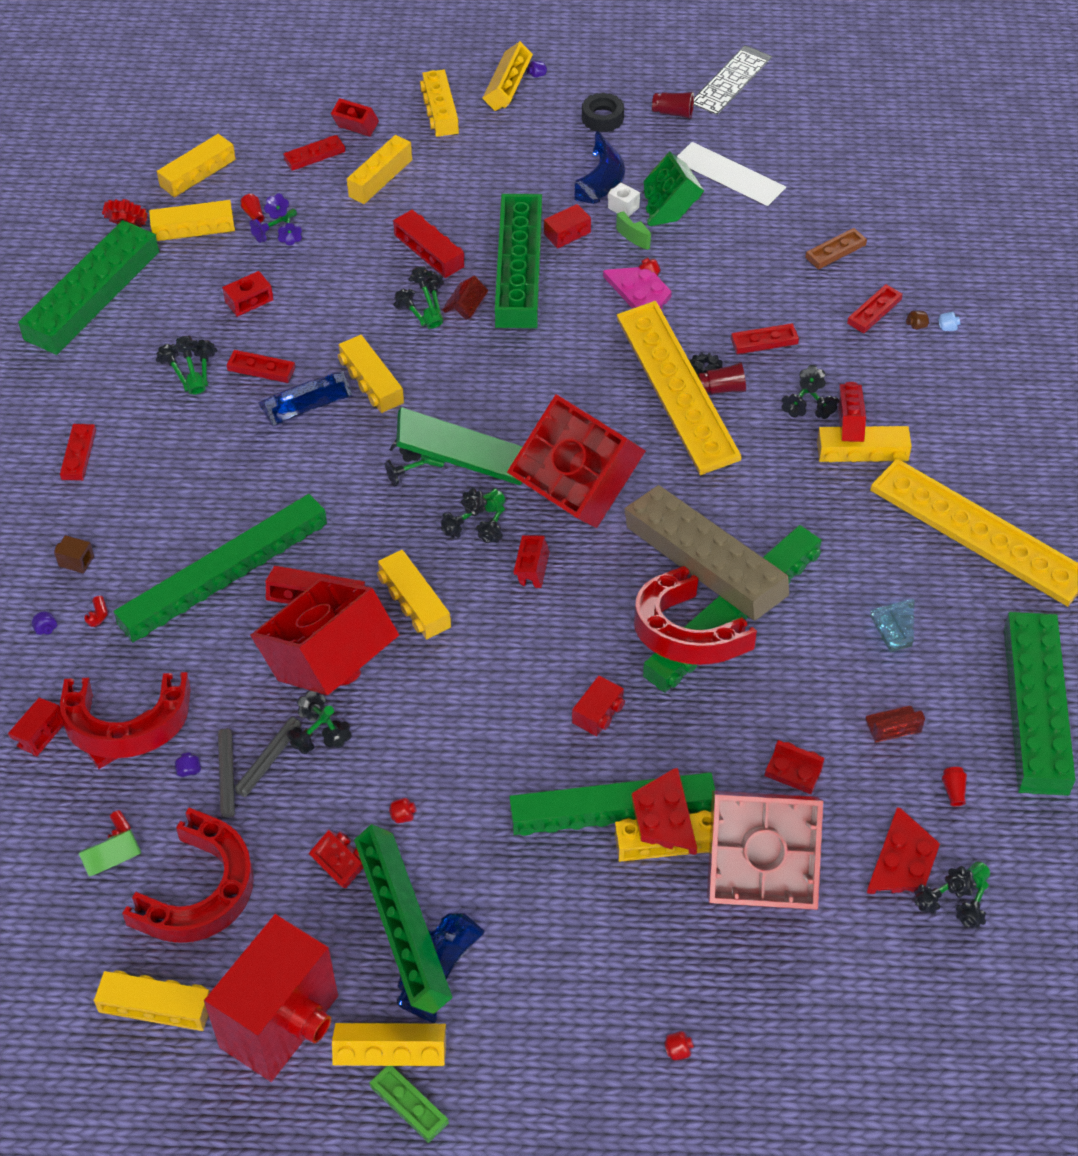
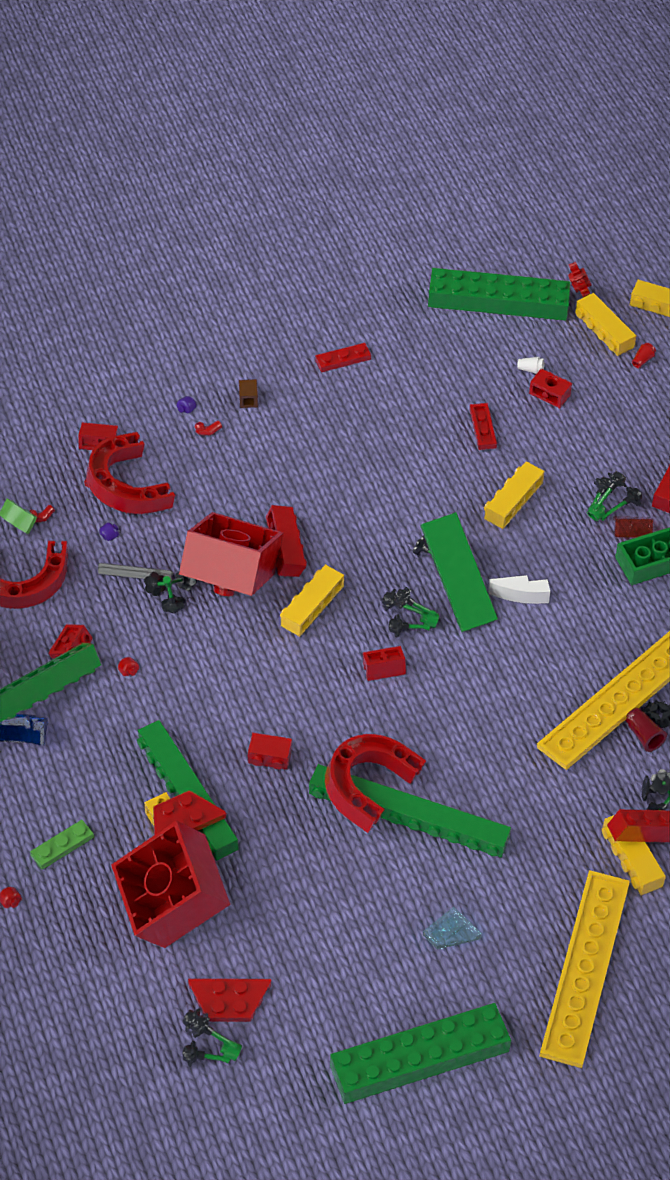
camera: 65 degrees right, 0 degrees up
(203, 348) = (460, 367): plant -> none
(205, 296) = (531, 364): none -> white cone
(220, 568) = (282, 480): green brick -> none
(226, 775) = (111, 554): dark grey axle -> none
(276, 207) = (634, 364): dark purple plant -> none
(305, 397) = (462, 461): clear blue windscreen -> none
(500, 411) = (520, 589): none -> white slope
(576, 461) = (477, 647): red brick -> none
(628, 963) = (62, 844): none -> bright green plate
(707, 552) = (443, 769): dark tan brick -> none
(795, 767) = (275, 899): red bracket -> none
(895, 723) = (352, 956): clear red panel -> none
(955, 785) = (310, 1014): red cone -> none

